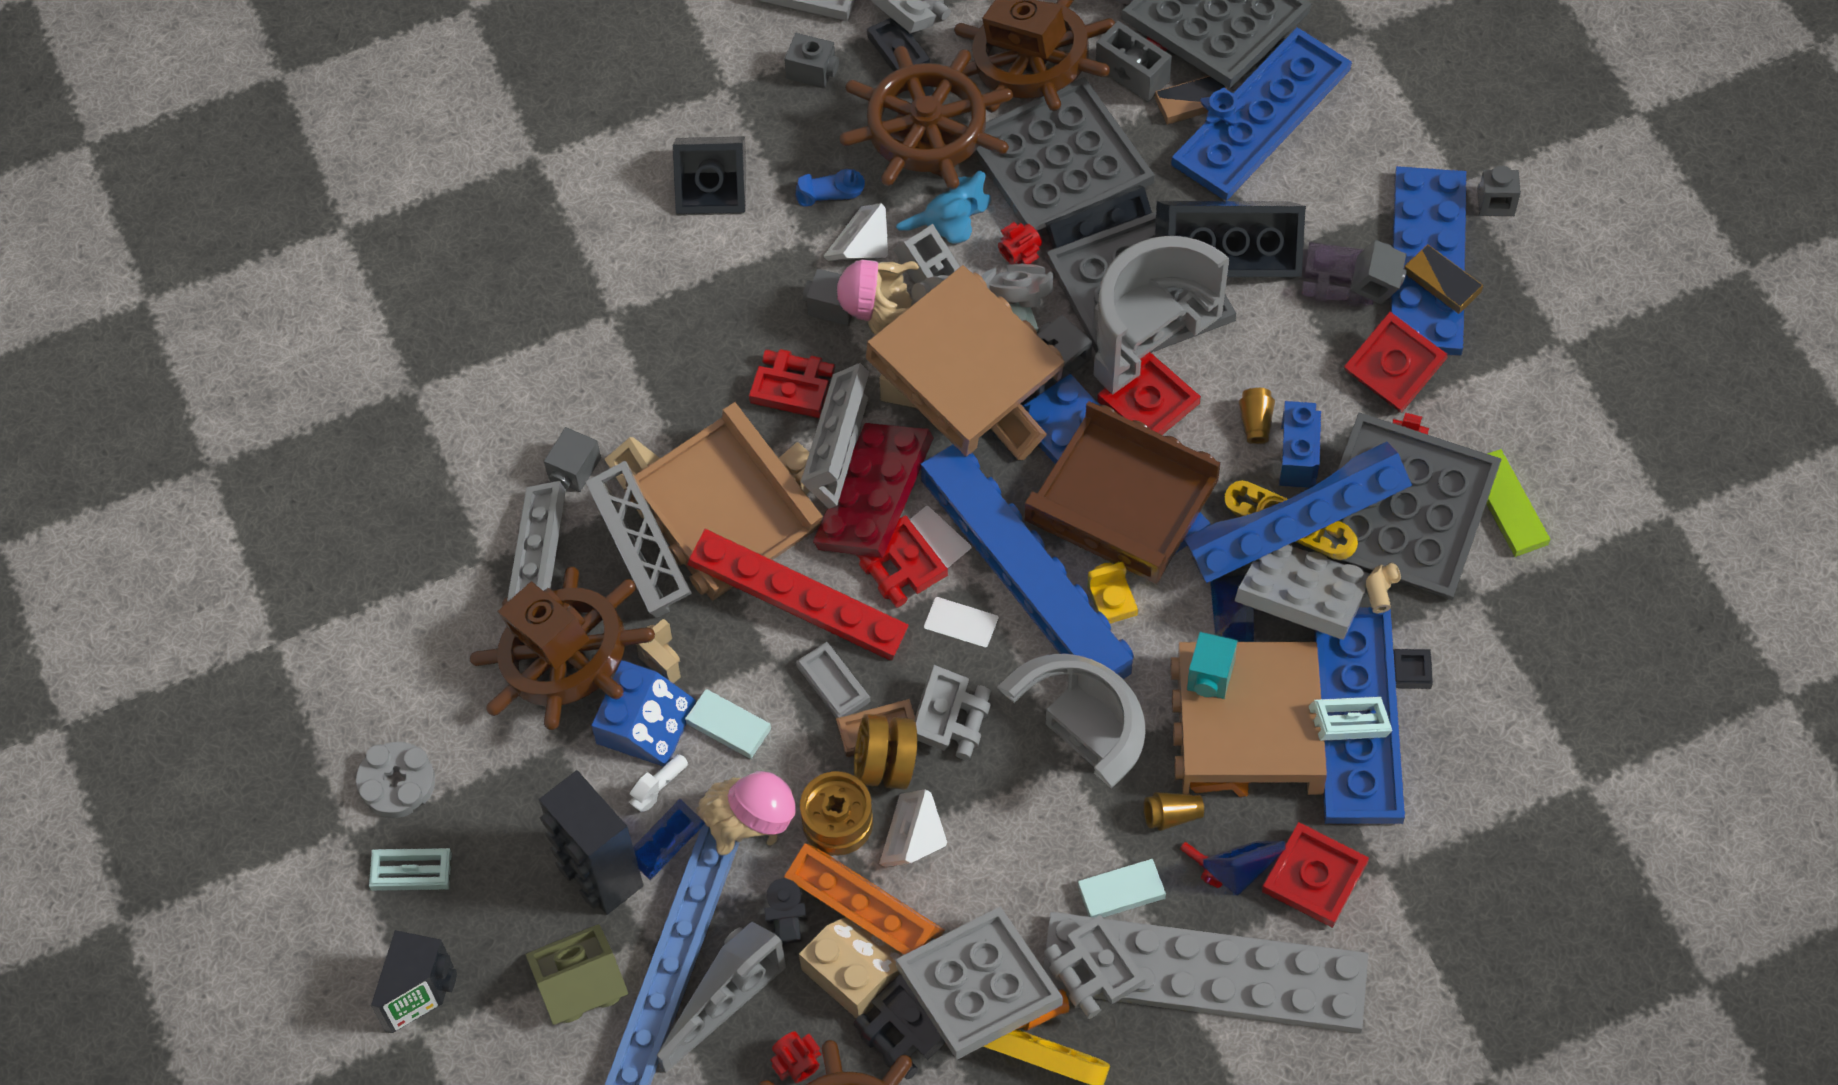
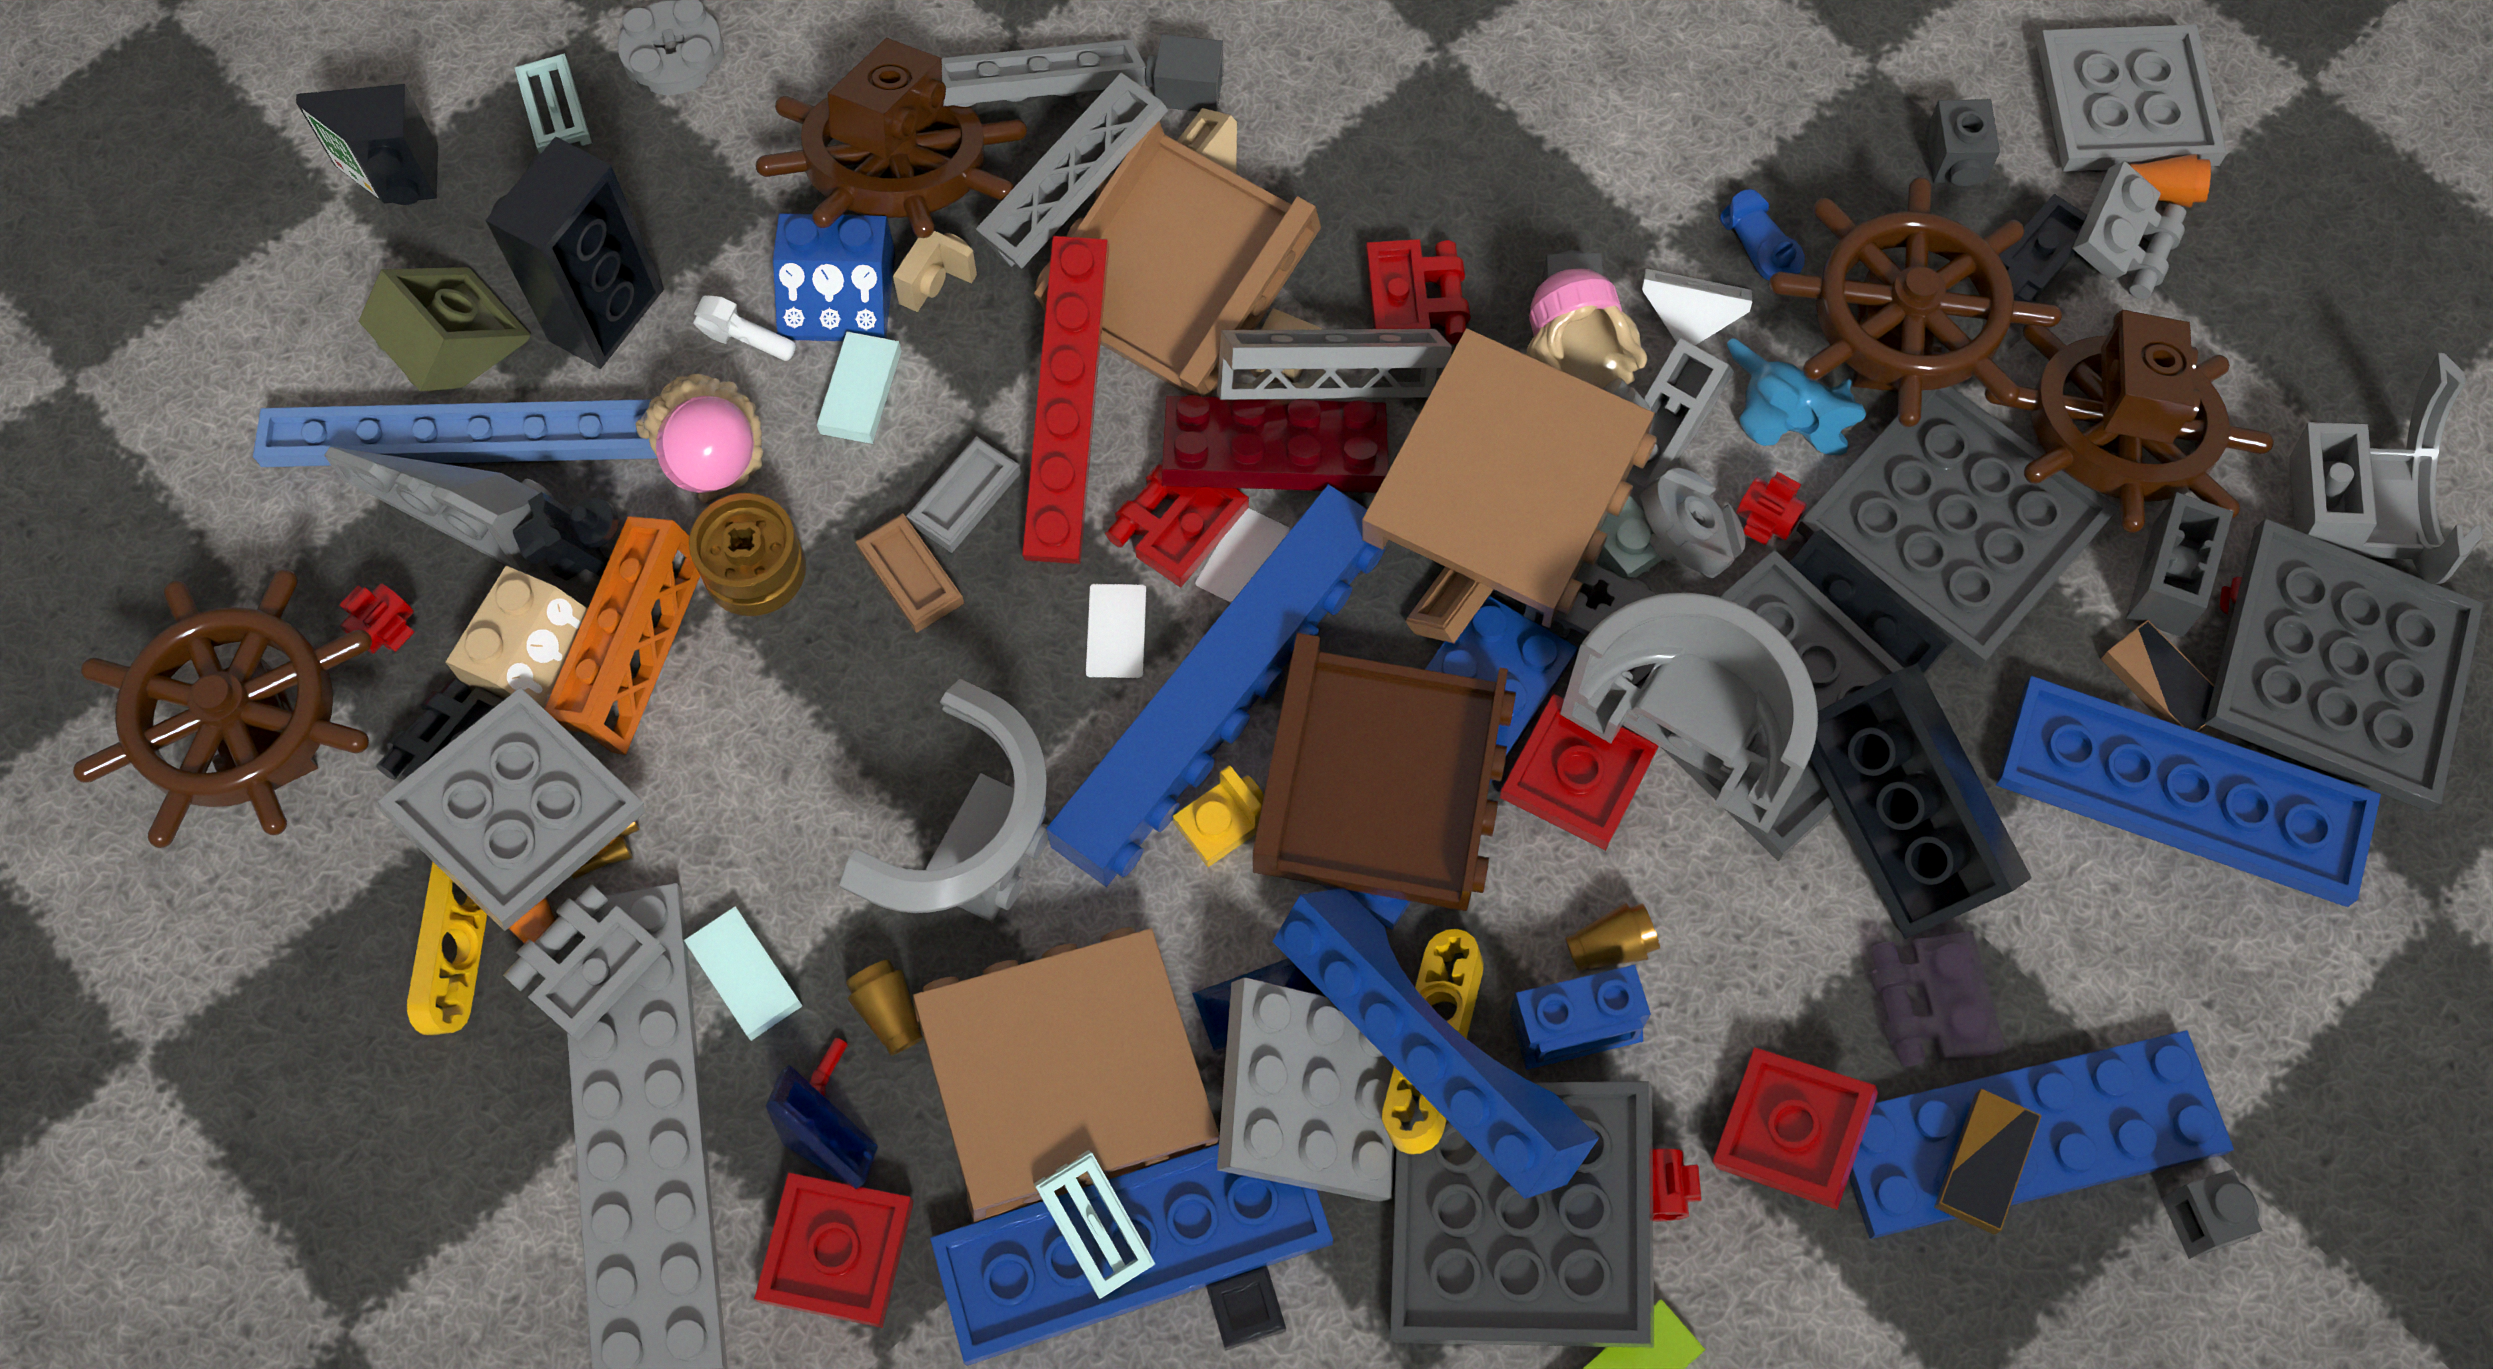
camera: 70 degrees right, 5 degrees up
(666, 838) = (637, 353): clear blue slope -> none
(710, 175) = (1710, 81): black slope -> none
(885, 751) = (847, 579): pearl gold wheel -> none
(913, 830) = (756, 668): white slope -> none
(940, 707) = (947, 635): light grey plate -> none
(1212, 665) = (1103, 979): teal brick -> none
(1222, 98) = (2172, 711): blue plate -> none
(1378, 272) = (1950, 1050): dark grey brick -> none
(1378, 583) = (1364, 1207): tan arm -> none

